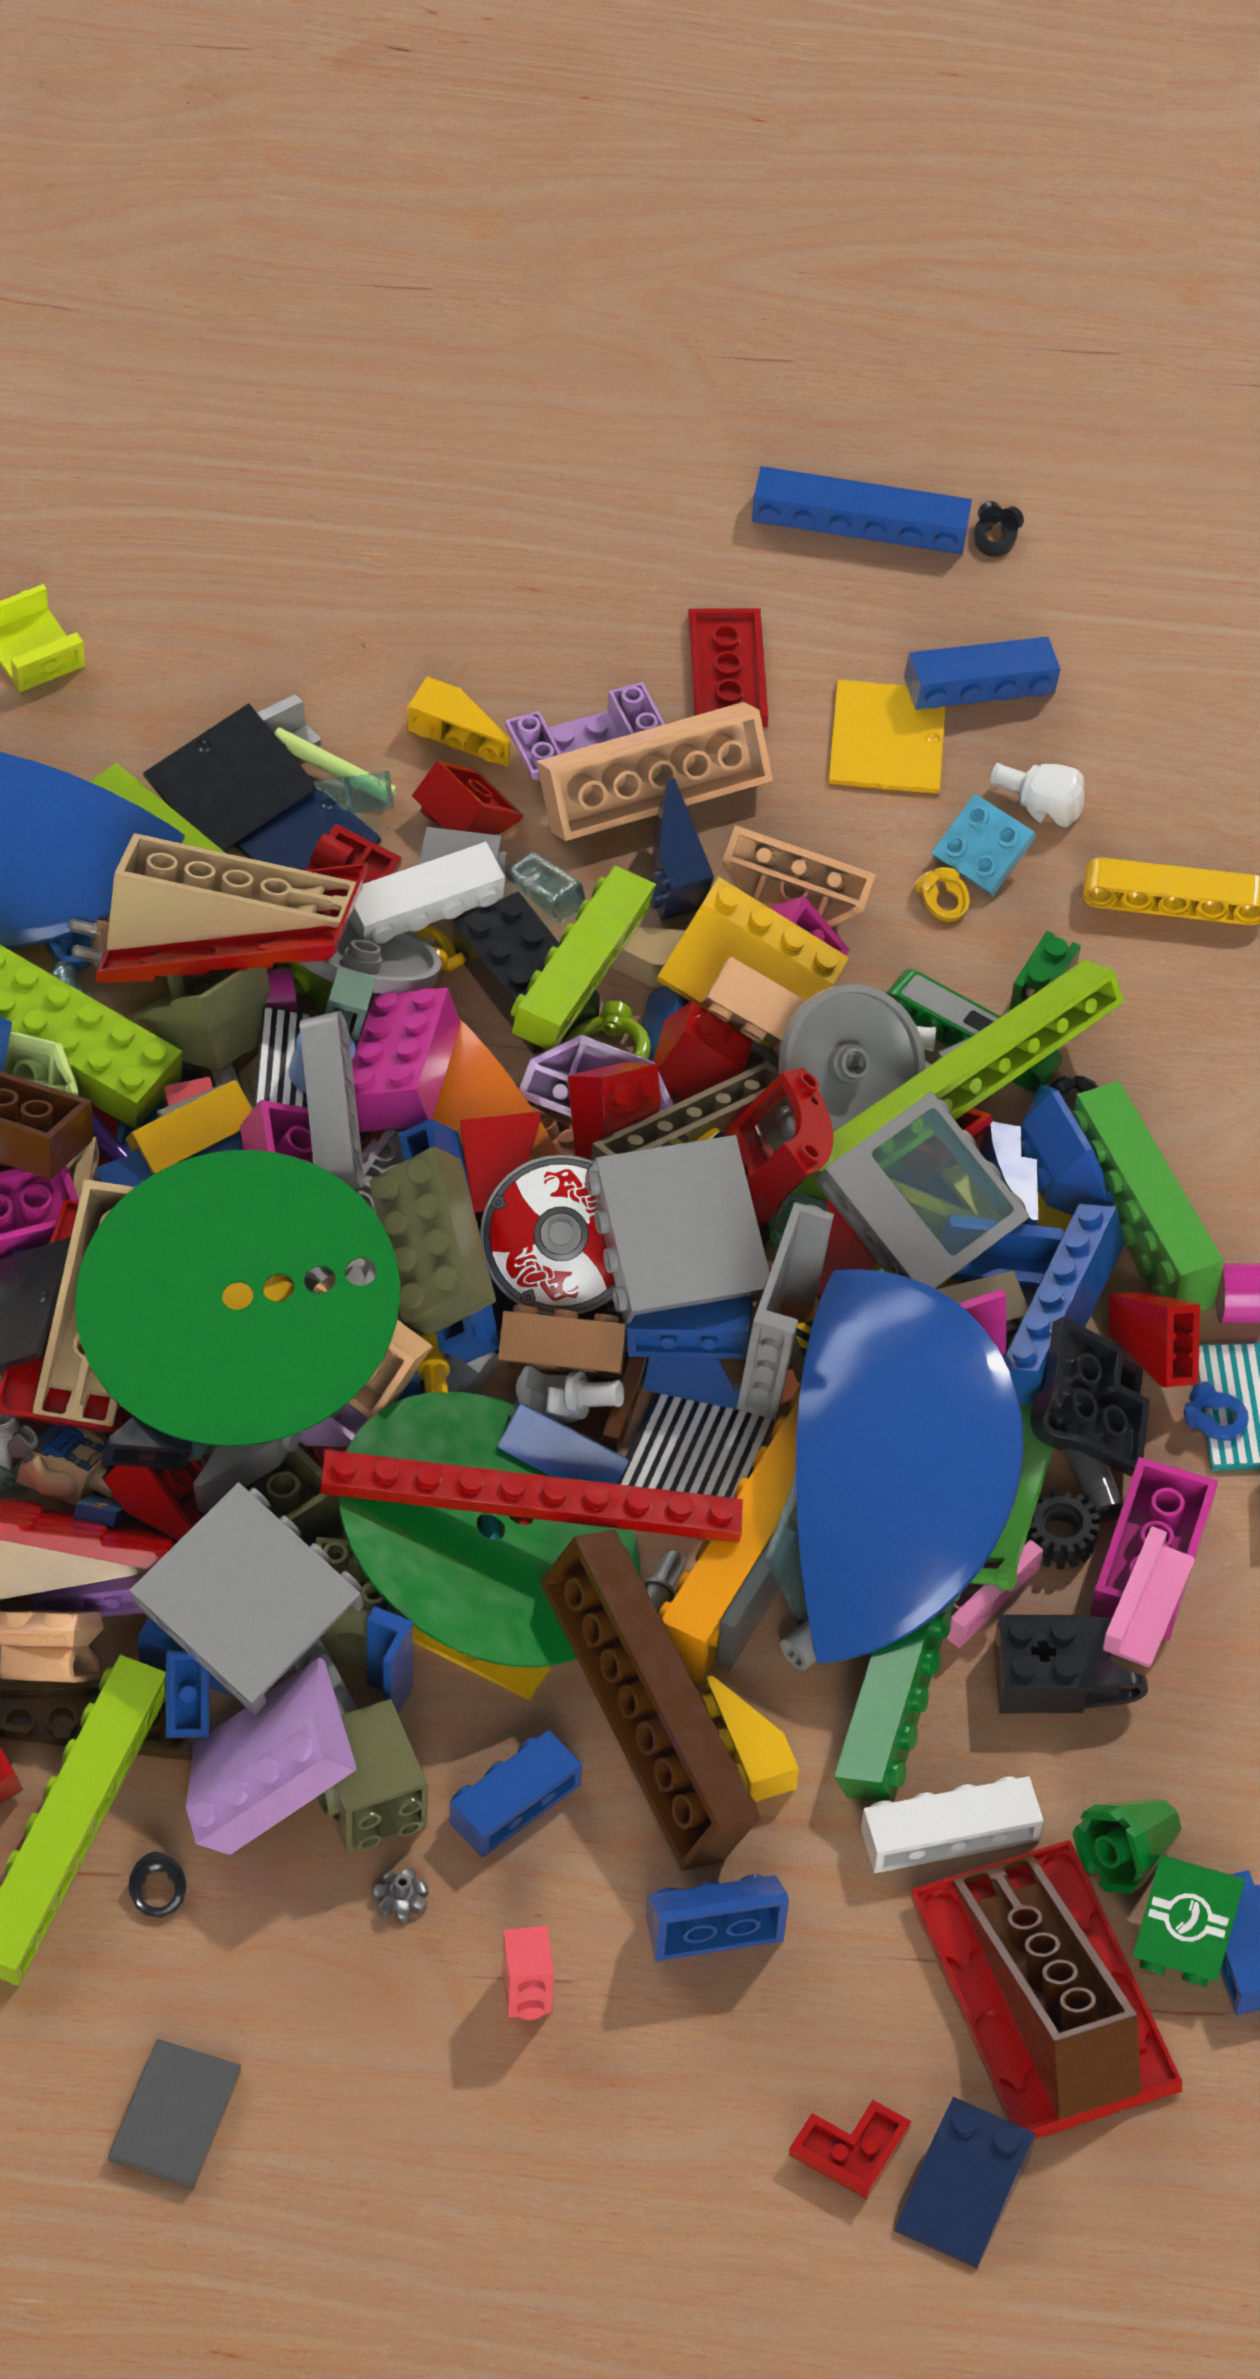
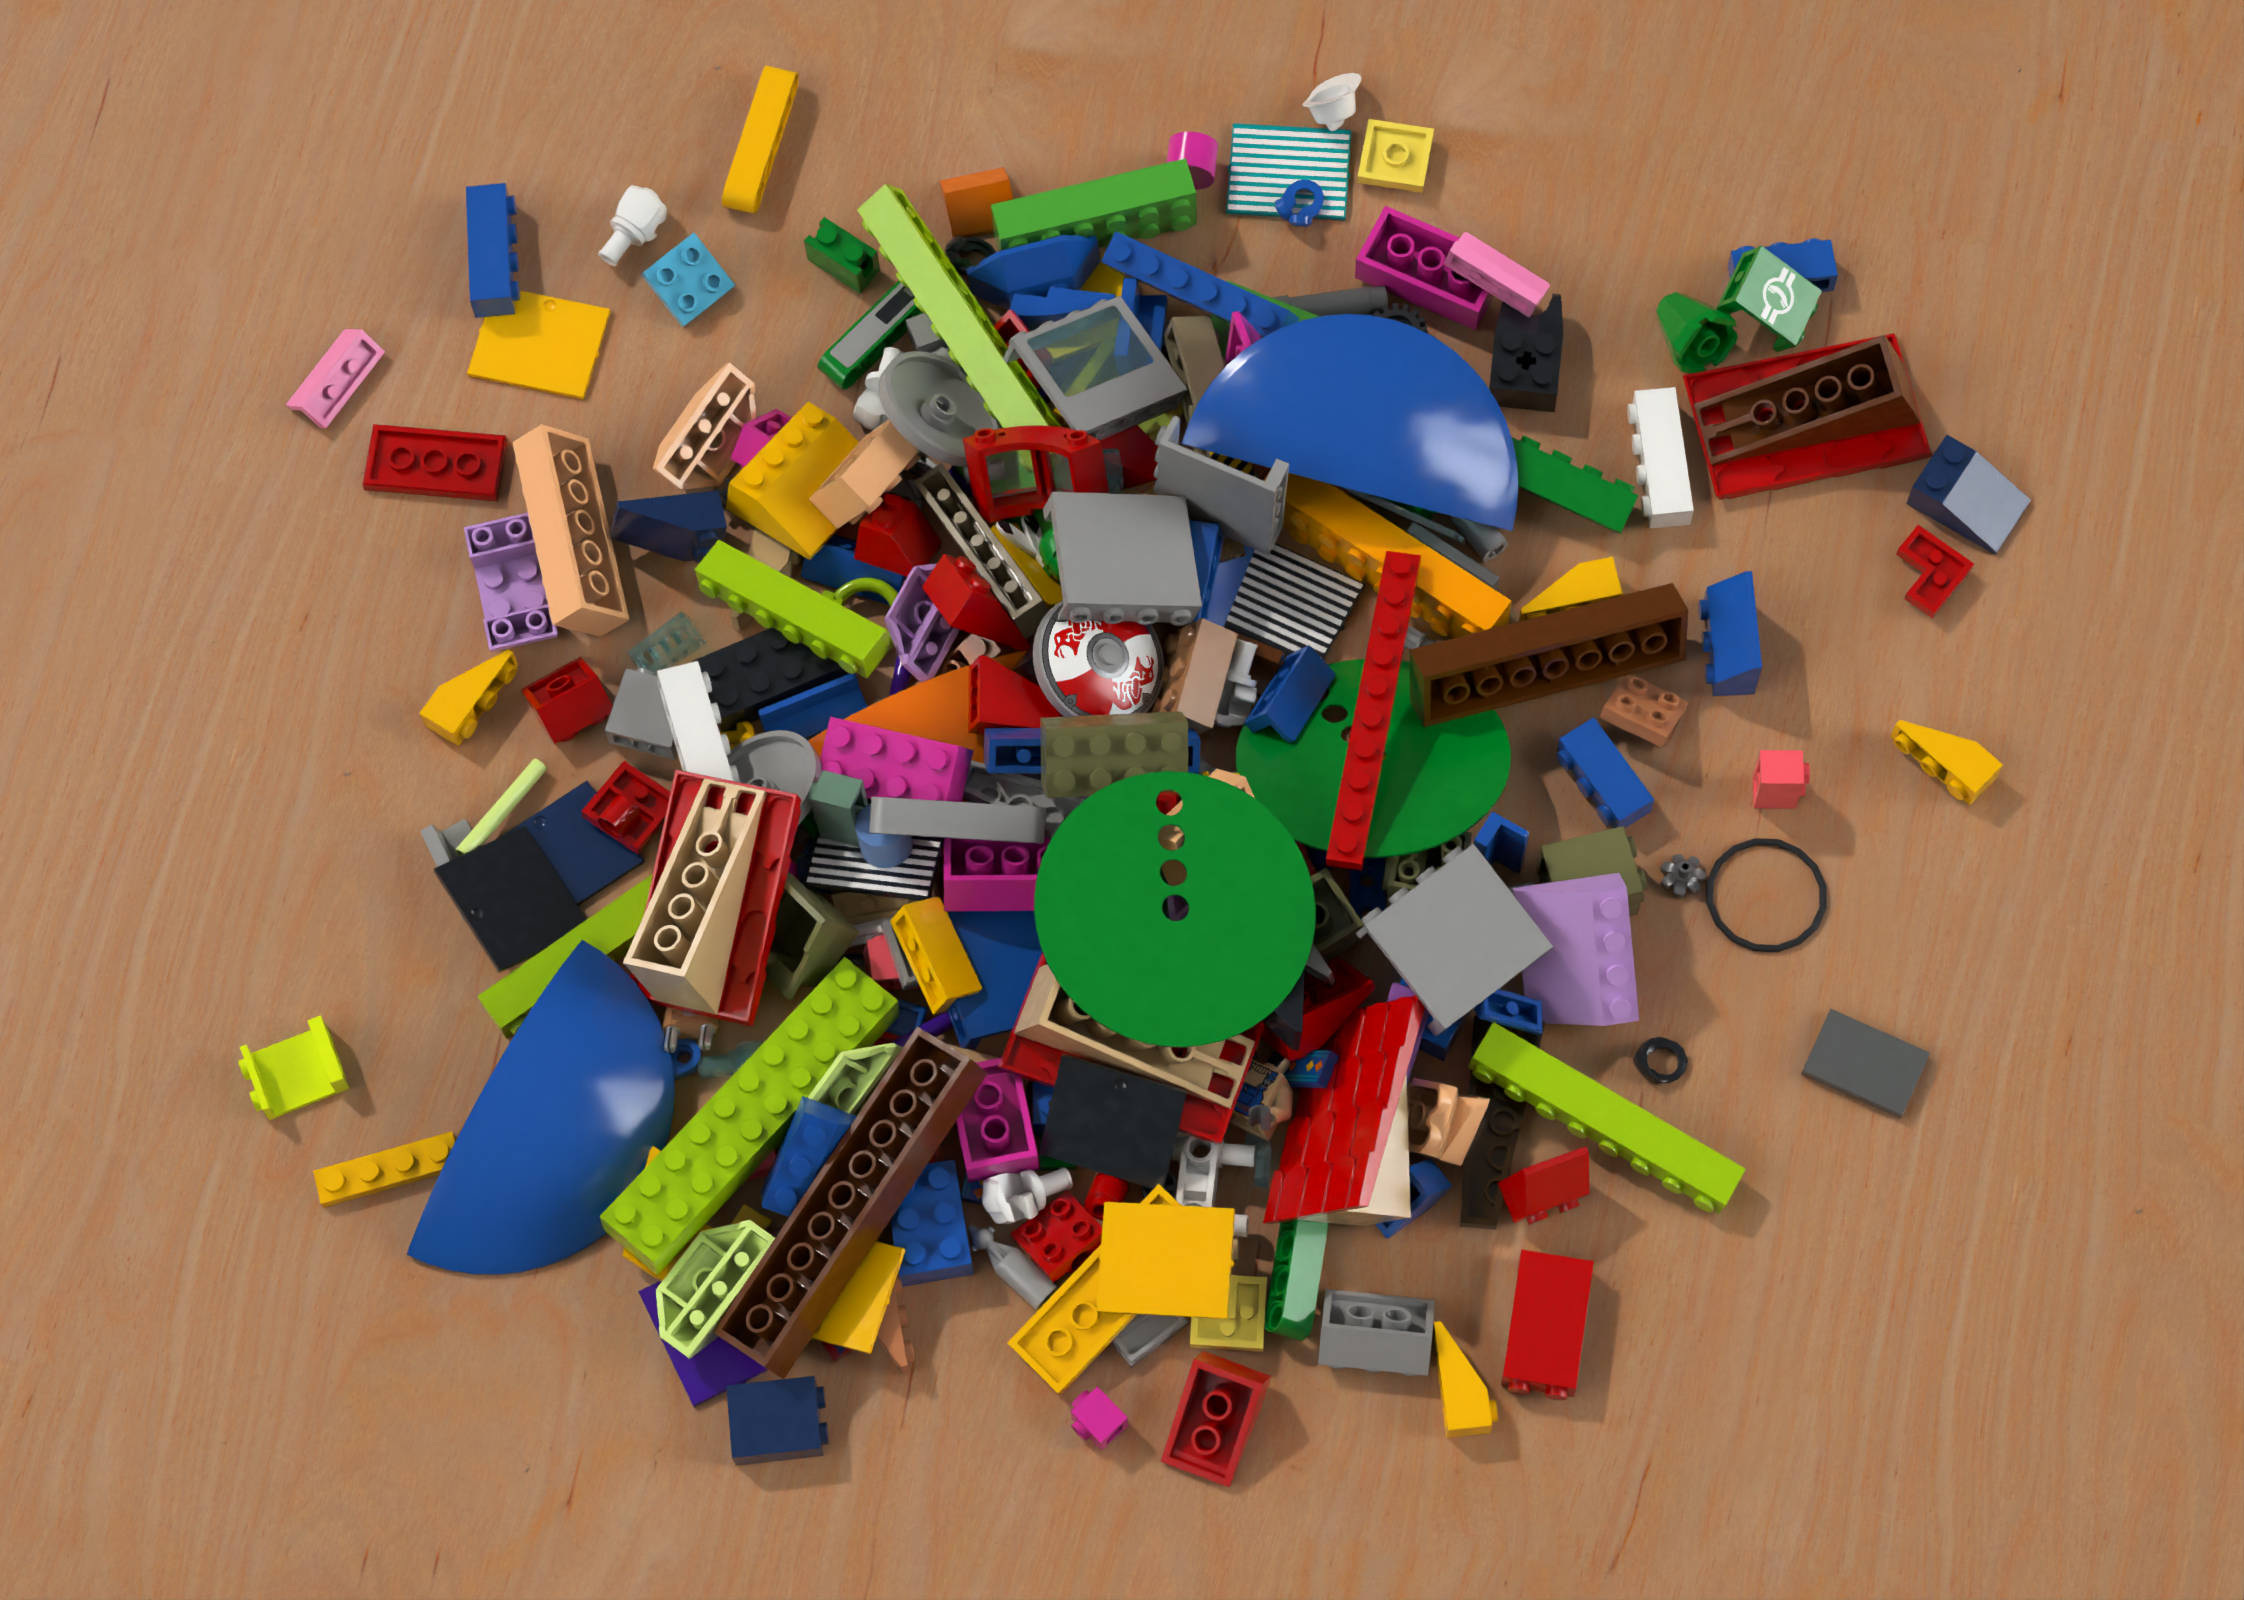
camera: 75 degrees left, 15 degrees up
(360, 792) = (537, 790): clear light blue slope -> none
(395, 2053) = (1759, 947): none -> black piece
(487, 1015) = (811, 710): none -> blue panel
(584, 2193) = (1953, 759): none -> yellow slope
(603, 1827) = (1644, 710): none -> nougat plate
(807, 572) = (336, 376): none -> bright pink panel
(861, 510) = (273, 321): blue brick -> none
(950, 877) = (718, 334): yellow piece -> none
(990, 515) = (305, 199): black piece -> none
(1091, 1399) = (1301, 280): black slope -> none
(1154, 1095) = (970, 200): none -> orange slope
(1158, 1335) = (1230, 227): red slope -> none

